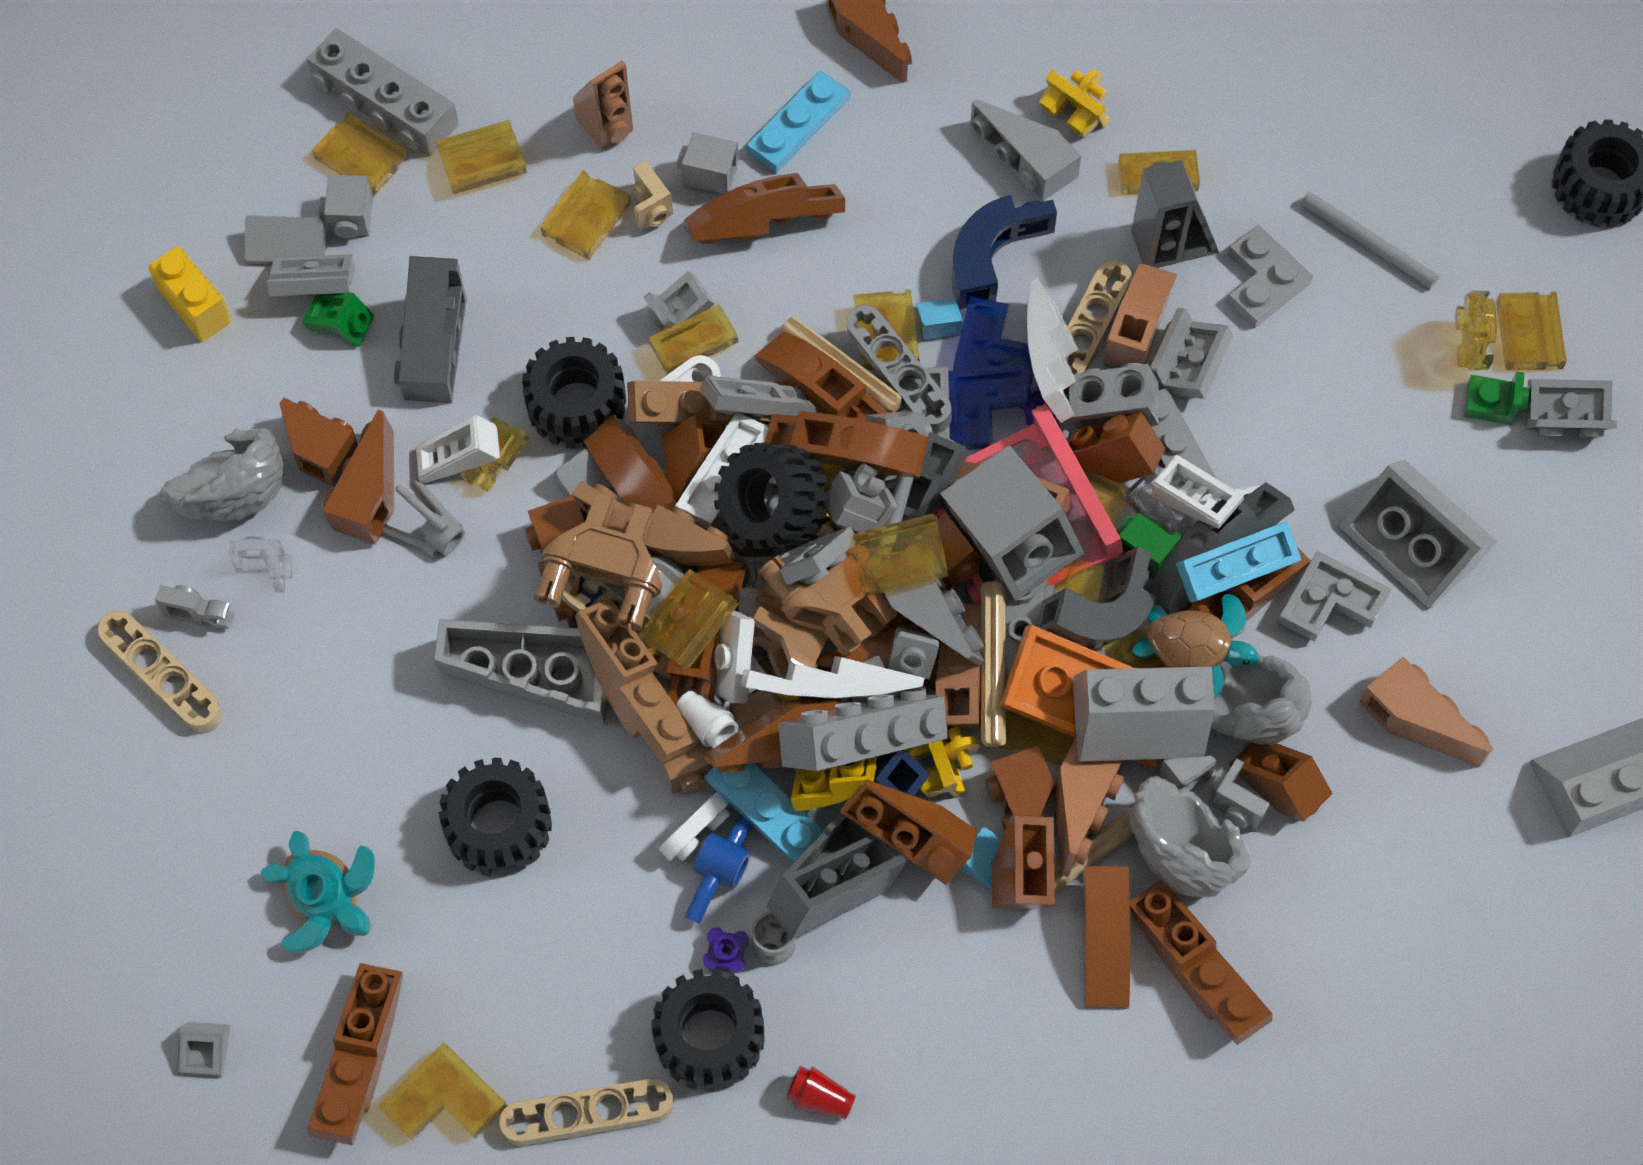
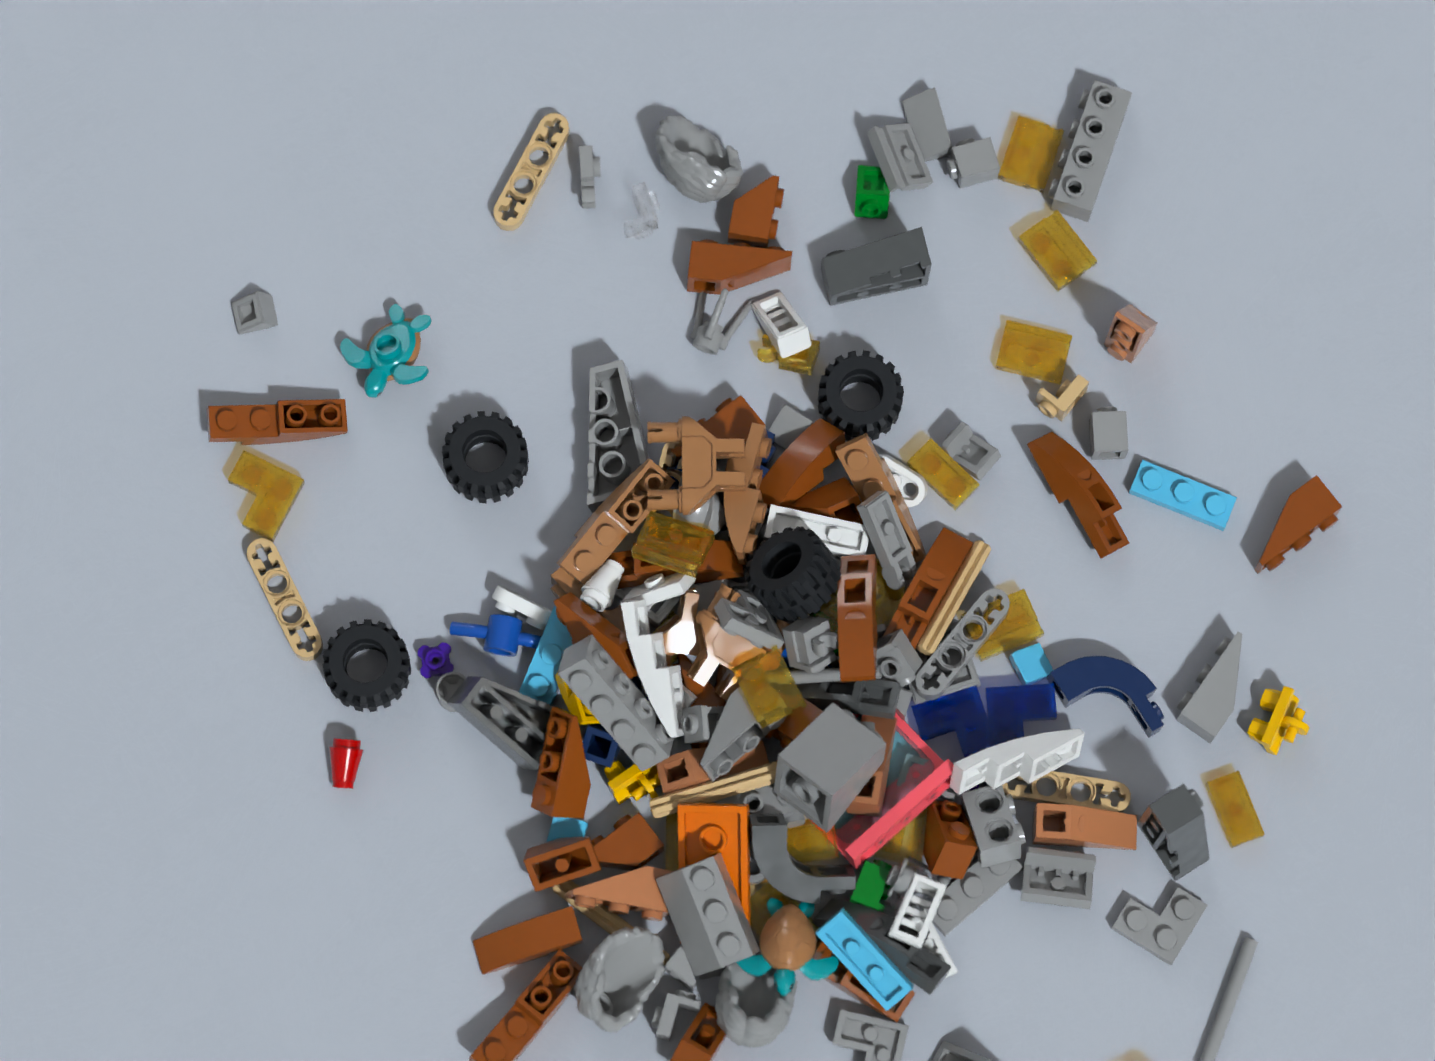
camera: 70 degrees right, 10 degrees up
(190, 293) = (852, 71): yellow brick -> none
(1152, 502) = (899, 878): none -> light grey plate

